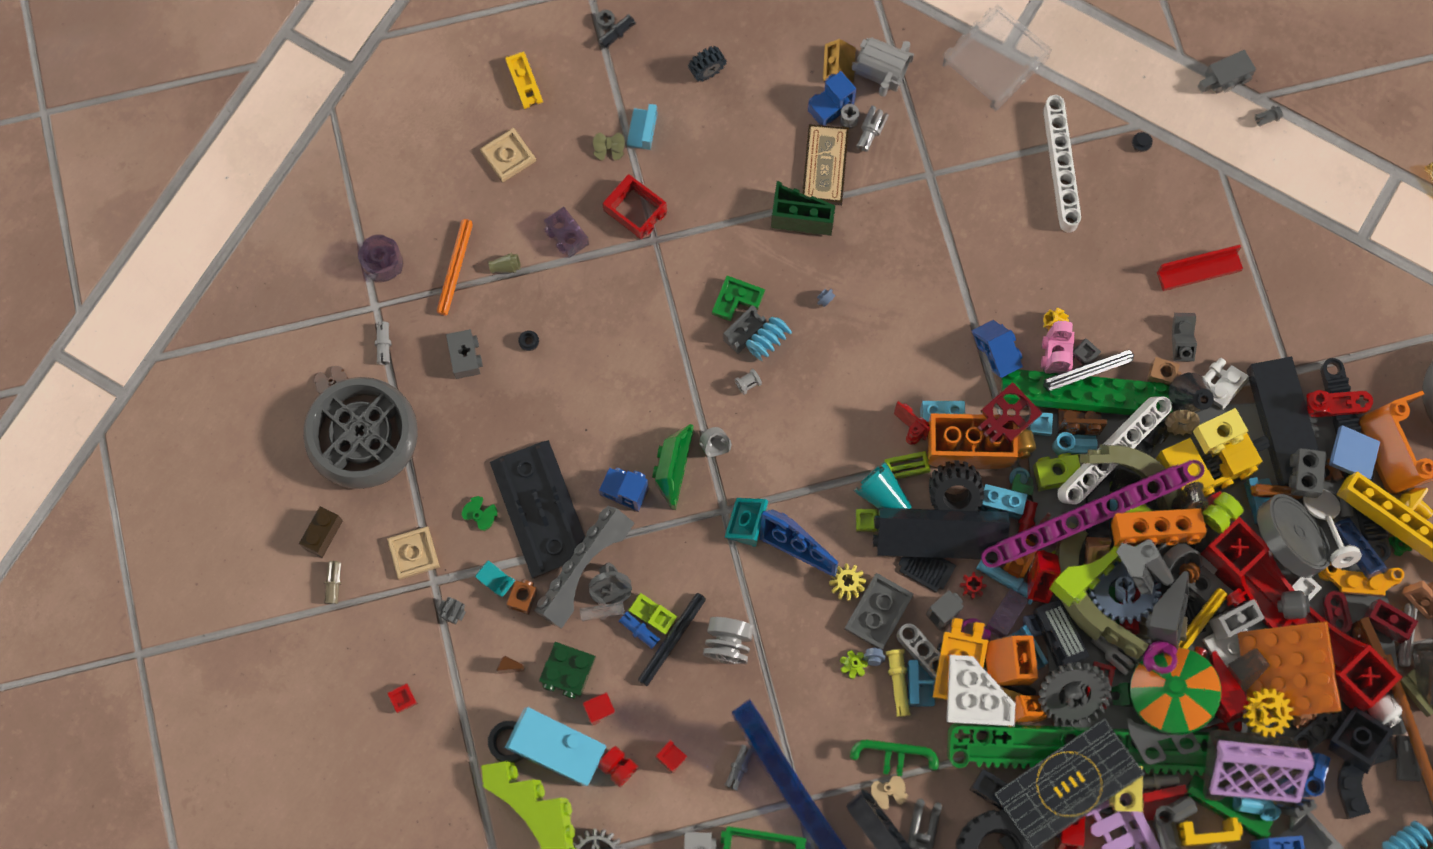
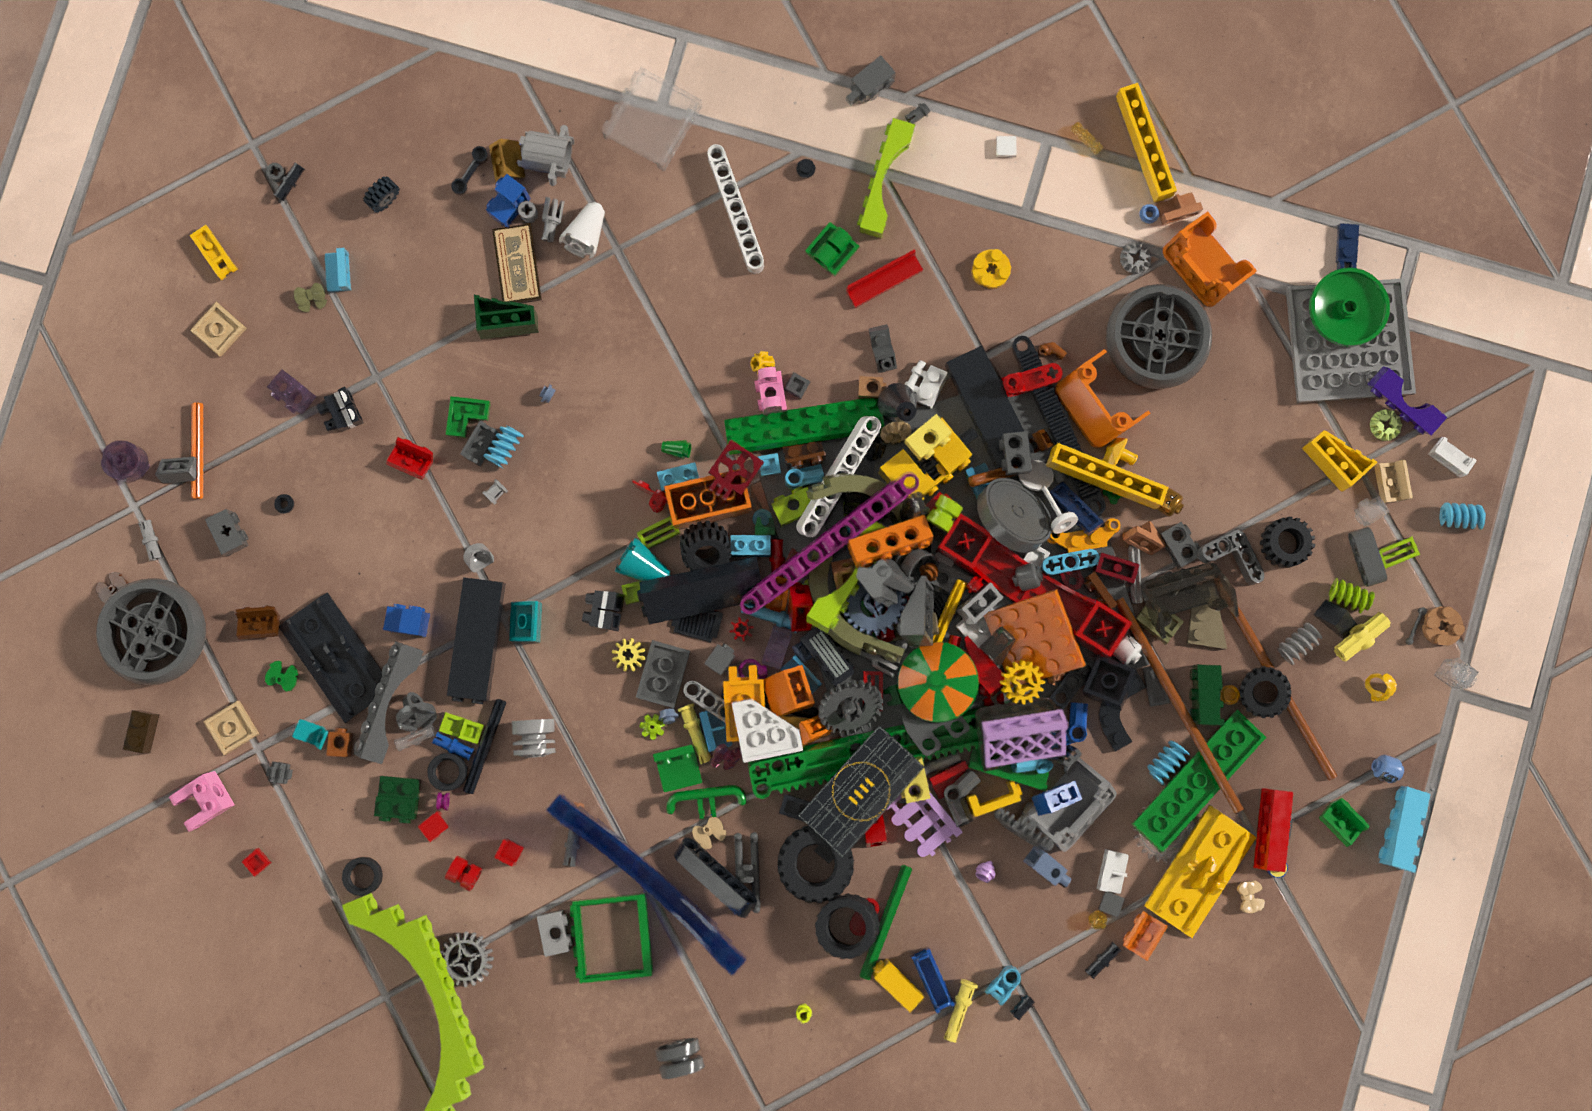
camera: 15 degrees left, 10 degrees up
(332, 582) = (165, 774): dark tan axle -> none
(374, 617) = (210, 796): none -> bright pink brick
(430, 280) = (177, 470): none -> dark grey slope
(470, 451) = (257, 622): none -> reddish brown bracket
(506, 264) = (243, 436): olive cone -> none
(509, 665) = (343, 808): reddish brown slope -> none
(555, 746) = (403, 872): medium azure brick -> none
(614, 263) = (343, 411): none -> black hips
(614, 684) = (443, 801): none -> magenta bush
(620, 193) = (332, 342): red window -> none
(626, 638) = (431, 772): none -> black tyre
(670, 326) = (410, 458): none -> red bracket
(672, 464) = (445, 586): green wedge -> none
(691, 526) = (476, 640): none -> black brick
(791, 538) = (560, 626): blue wedge -> none
(812, 53) = (479, 155): none -> black bar
(834, 528) = (604, 619): none -> black hips
(872, 713) = (678, 768): none -> green bracket
(902, 148) = (584, 231): none -> white cone
(924, 709) = (722, 753): none -> clear pink piece
(949, 385) = (677, 448): none -> green cone
(999, 347) = (715, 403): blue brick -> none
(1025, 444) = (758, 488): pearl gold head -> none
(1088, 370) = (800, 404): axle -> none
(1153, 225) = (832, 248): none -> green plate
(1158, 648) = (911, 650): magenta piece -> none
(1205, 203) = (898, 140): none -> lime arch
(1316, 274) = (1002, 270): none -> yellow plate
(1326, 595) = (1054, 559): none -> medium azure beam
(1354, 169) = (1006, 146): none -> white tile
(1354, 452) = (1055, 422): medium blue tile -> none
(1362, 380) = (1051, 348): none -> dark orange arm

